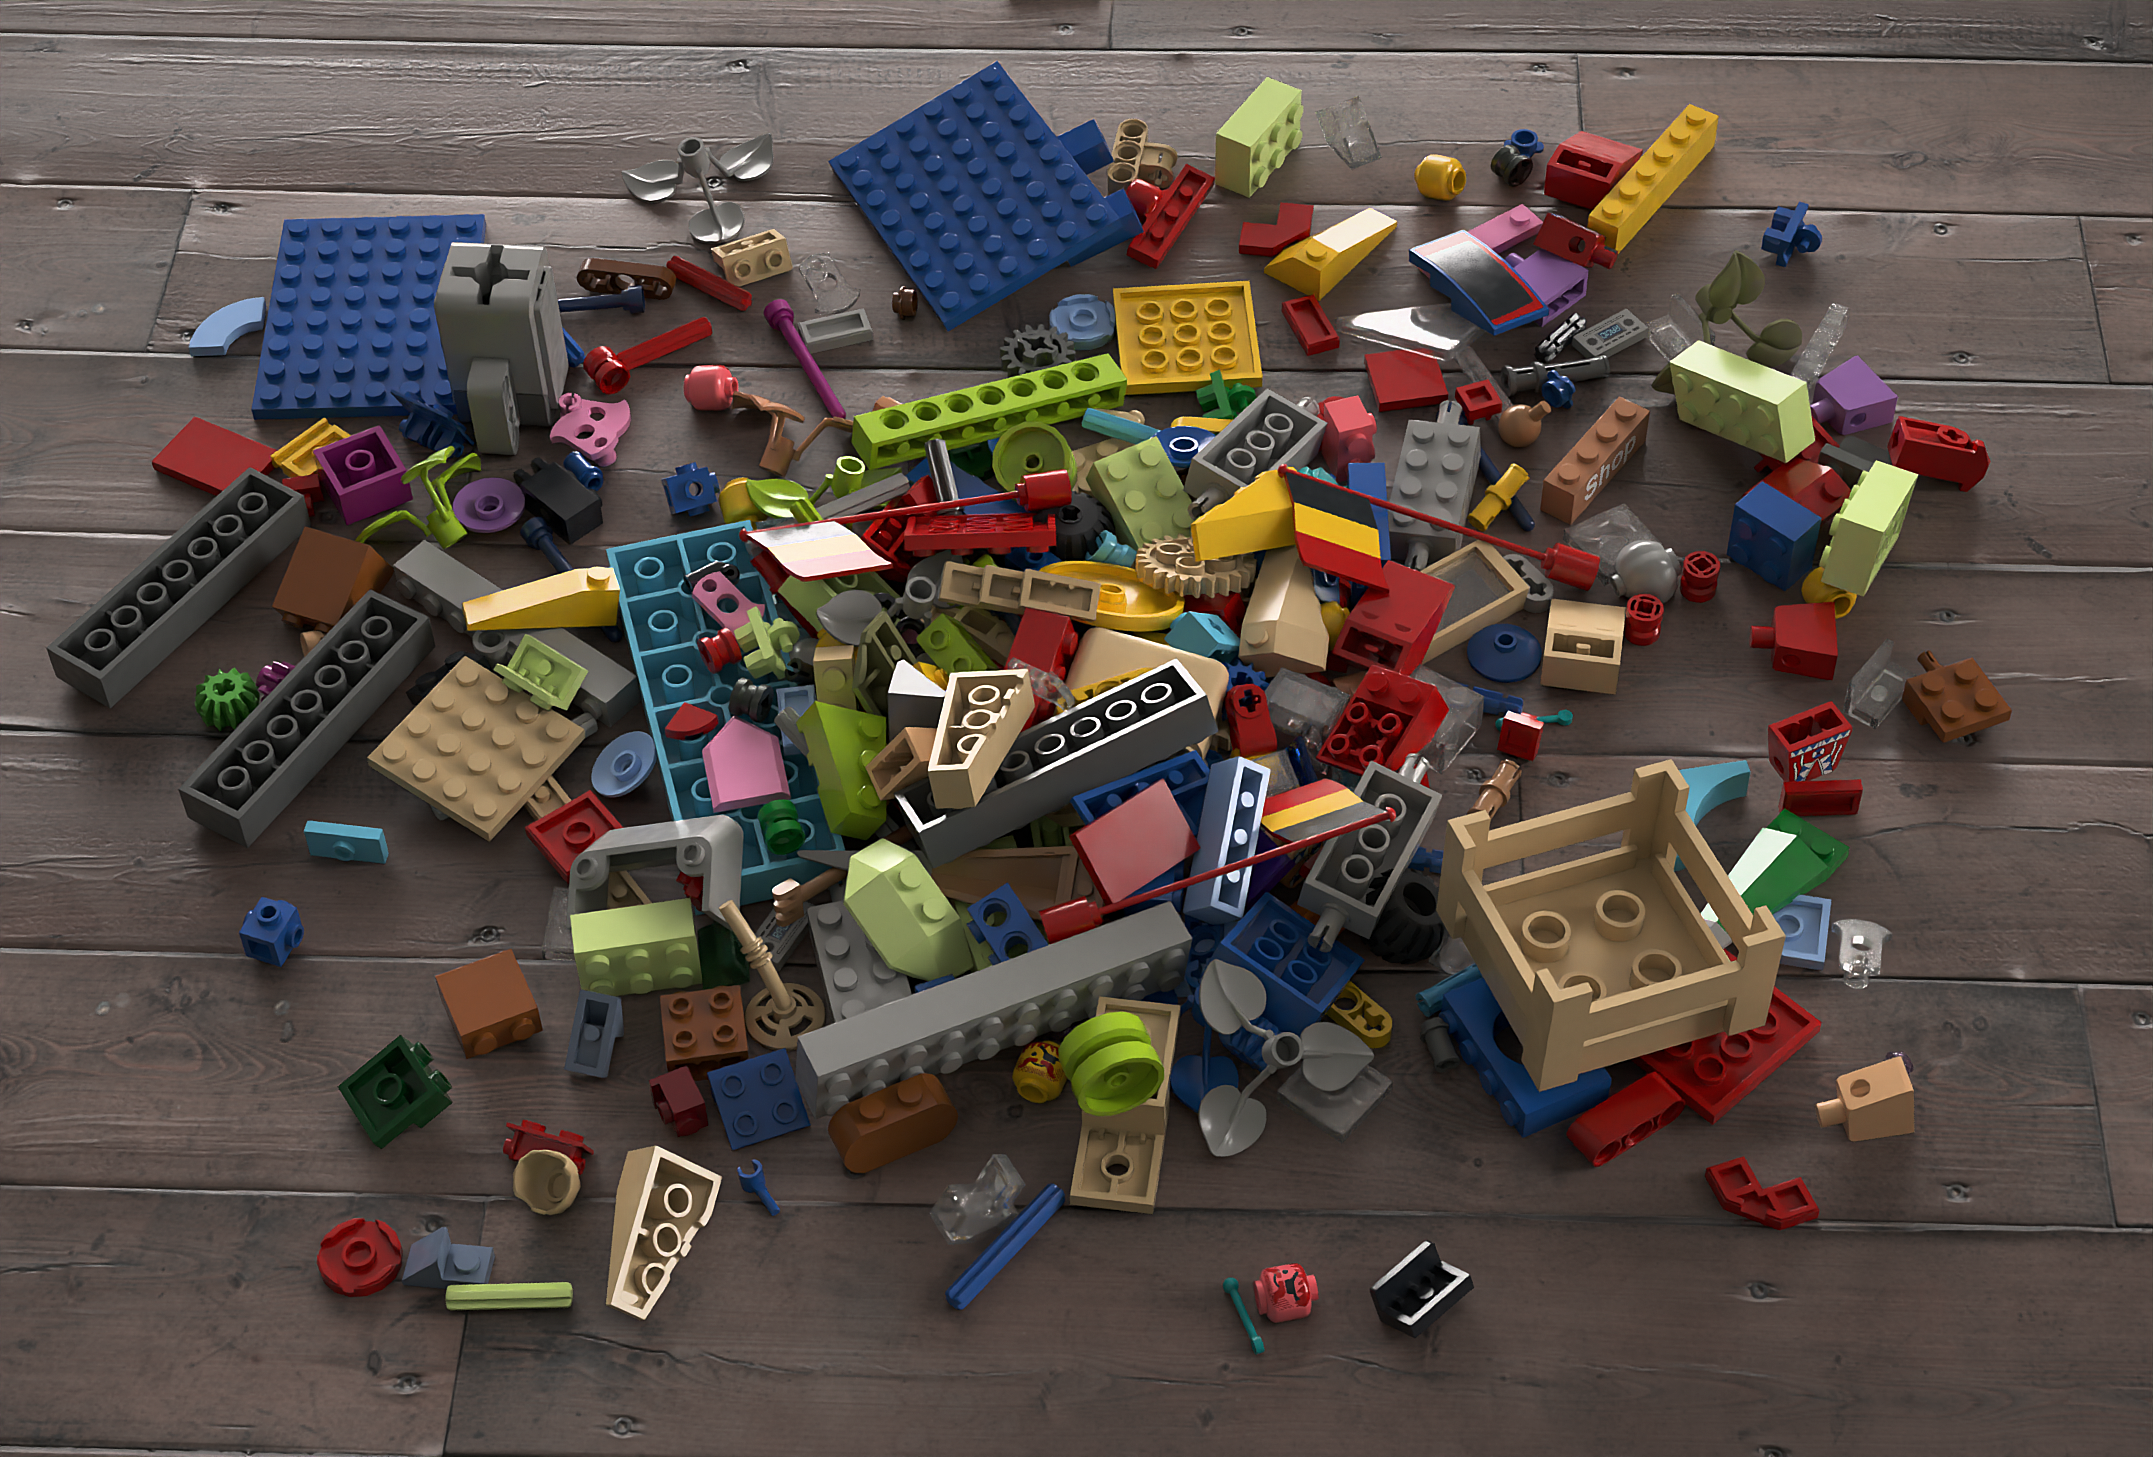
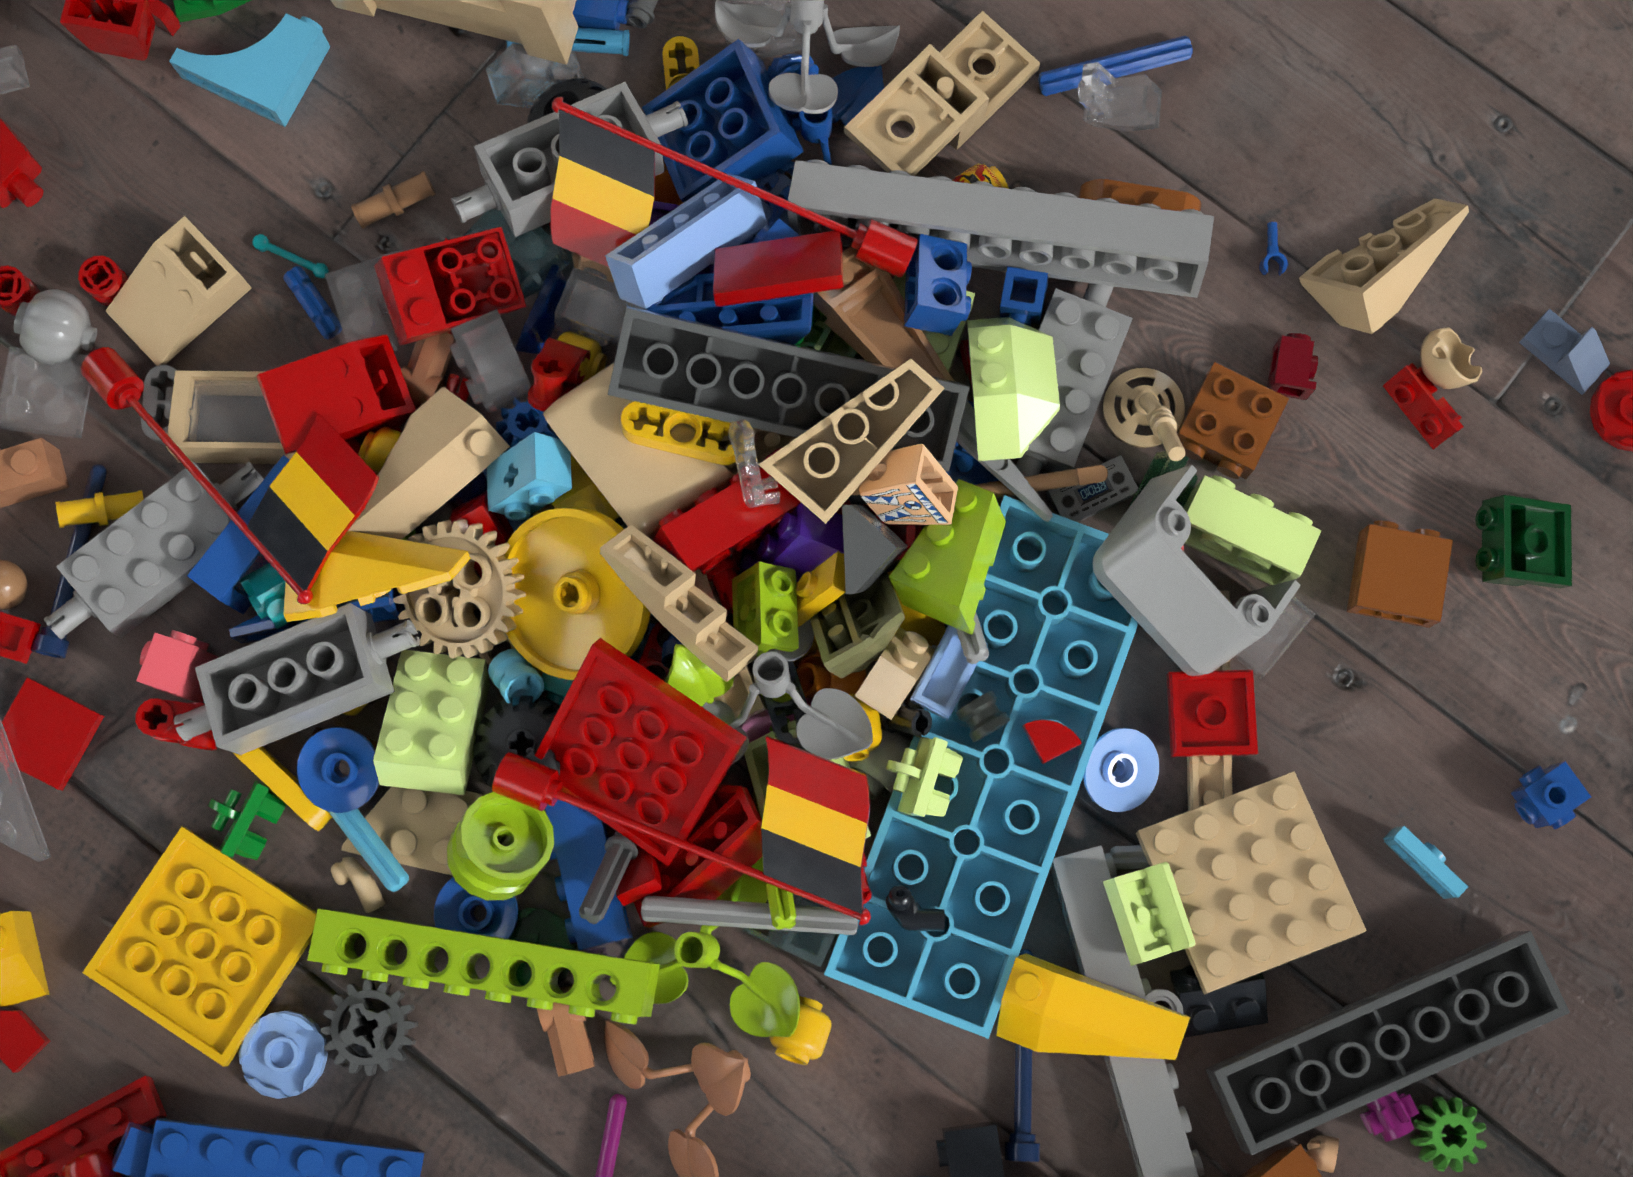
camera: 145 degrees left, 30 degrees up
(509, 1296) = (1533, 286): yellowish green axle -> none
(593, 1033) = (1327, 479): sand blue slope -> none
(678, 494) = (841, 1087): blue brick -> none
(719, 650) = (973, 801): red wheel -> none
(723, 589) = (926, 833): bright pink piece -> none
(744, 767) = (1033, 652): bright pink tile -> none
(758, 1099) = (1224, 329): blue hinge -> none
(781, 827) = (1051, 545): green wheel -> none
(1111, 1064) = (962, 68): lime wheel -> none
(1310, 325) = (70, 878): red tile -> none
(1504, 653) = (268, 343): blue dish -> none
(1520, 735) = (318, 238): red tile -> none

